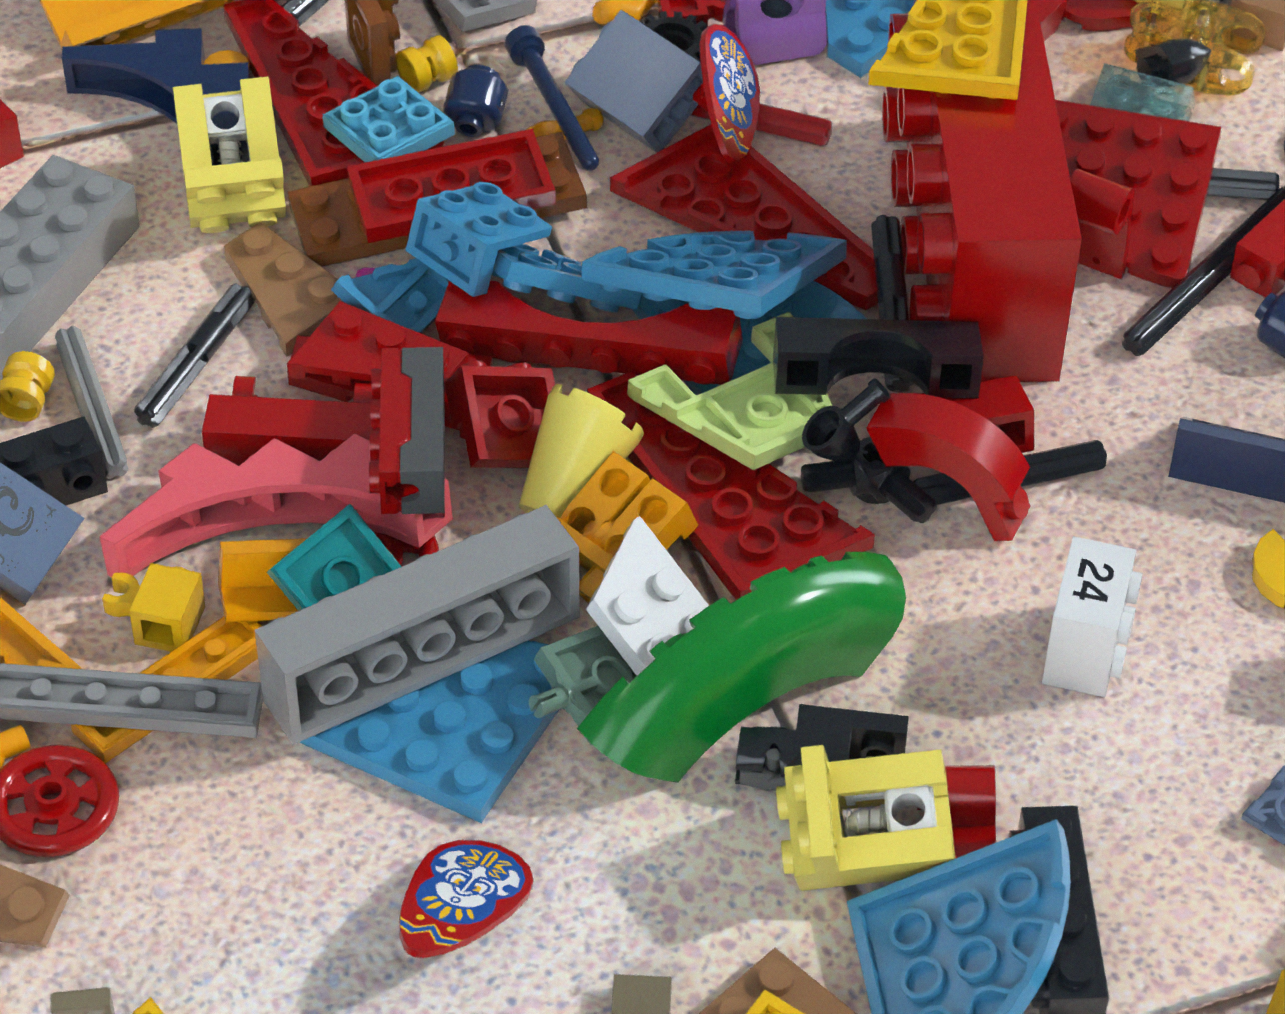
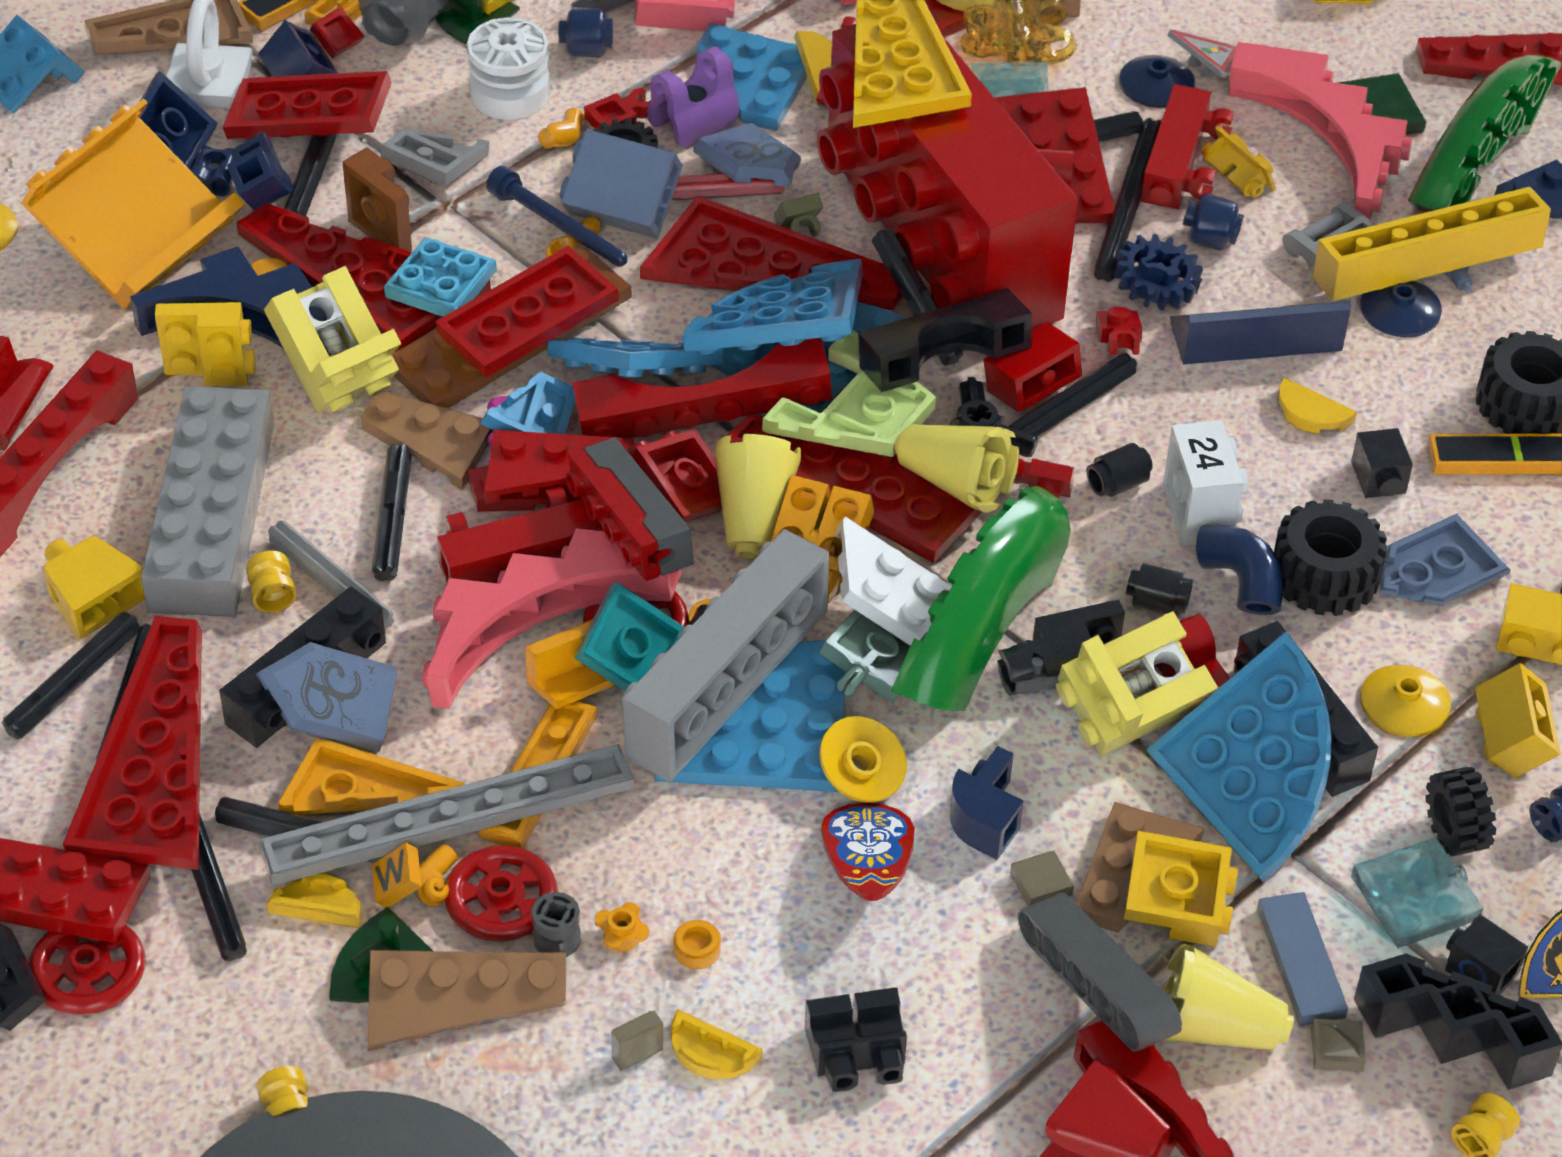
camera: 25 degrees left, 0 degrees up
(89, 866) = (556, 923): none -> dark grey wheel
(107, 116) = (206, 342): none -> yellow plate
(151, 897) = (624, 937): none -> light orange plate
(162, 608) = (498, 715): yellow brick -> none
(220, 934) = (697, 944): none -> light orange tile
(427, 63) = (437, 219): yellow wheel -> none
(465, 228) = (577, 343): dark azure bracket -> none
(475, 99) = (494, 236): dark blue head -> none
(531, 775) = (873, 748): none -> yellow dish
(618, 895) = (981, 809): none -> dark blue brick
(728, 91) = (703, 170): shield -> none
(807, 93) = (749, 154): none -> sand blue tile
(820, 500) = (961, 460): none -> light yellow cone
(822, 170) = (800, 211): none -> olive tile
(832, 431) = (941, 404): black bar -> none
(919, 552) = (1053, 477): none -> red plate
(961, 444) = (1042, 384): red arch -> none
(974, 722) = (1159, 589): none -> black brick
(1011, 571) = (1119, 470): none -> black brick
(1096, 725) = (1252, 561): none -> dark blue cylinder
(1109, 412) = (1120, 329): none -> red plate
(1173, 59) = (1016, 46): black plate -> none
(1186, 786) = (1355, 554): none -> black tyre
(1192, 361) = (1158, 272): none -> dark blue gear
(1198, 973) = (1405, 700): none -> yellow dish

